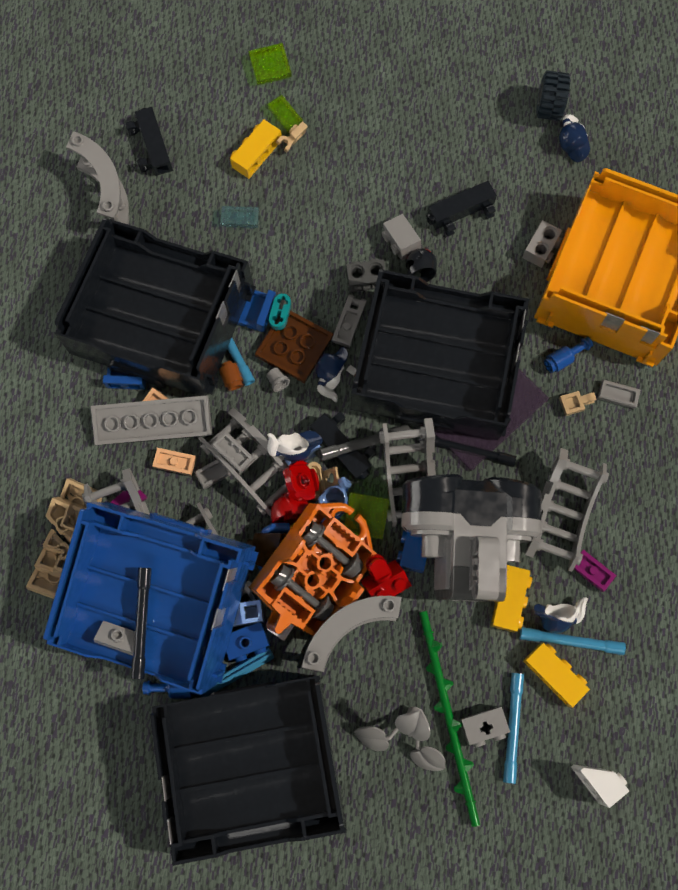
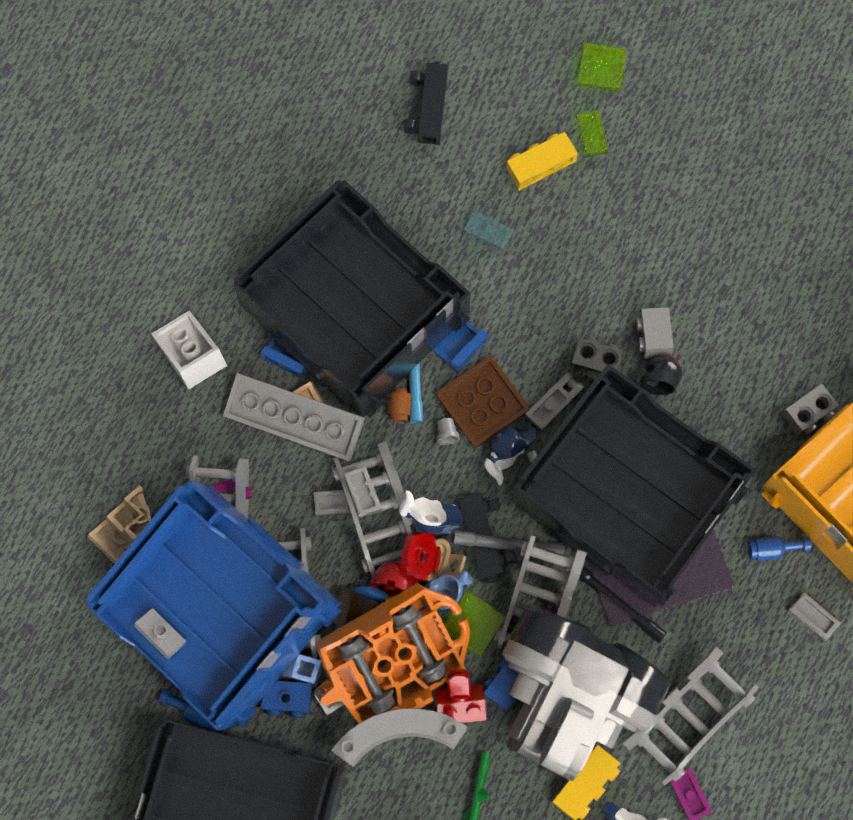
camera: 25 degrees right, 0 degrees up
(45, 405) = (189, 349): none -> white slope
(64, 511) = (165, 476): tan slope -> none
(99, 166) = (363, 148): light grey fence -> none
(138, 659) = (171, 664): black piece -> none
(174, 461) = (298, 471): light nougat plate -> none
(241, 670) = (268, 725): dark azure axle -> none
(284, 313) = (479, 356): teal beam -> none
(296, 133) = (594, 161): tan plate -> none
(461, 205) = (740, 325): black brick -> none
(574, 402) = (758, 604): tan plate -> none

